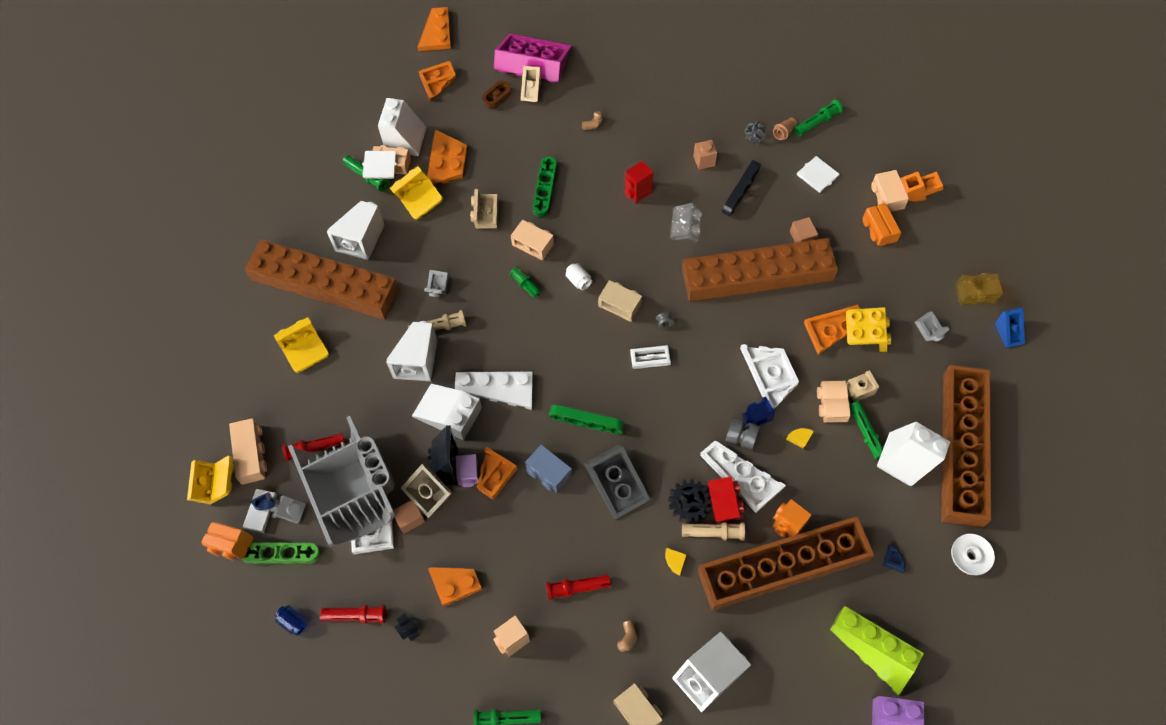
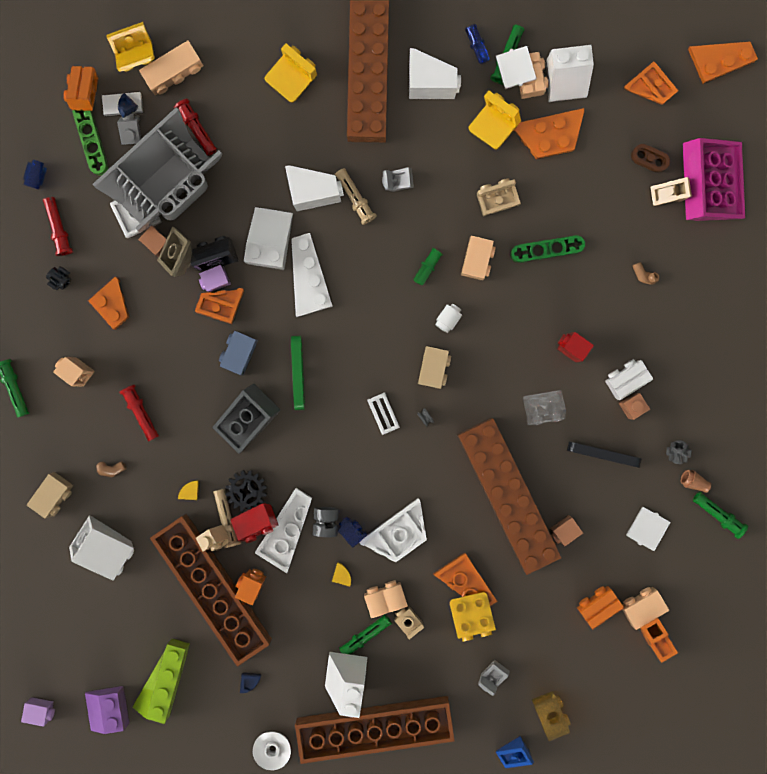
camera: 65 degrees right, 25 degrees up
(345, 193) = (477, 44): none -> clear blue axle
(680, 153) = (629, 379): none -> white brick
(732, 541) = (213, 539): none -> tan brick

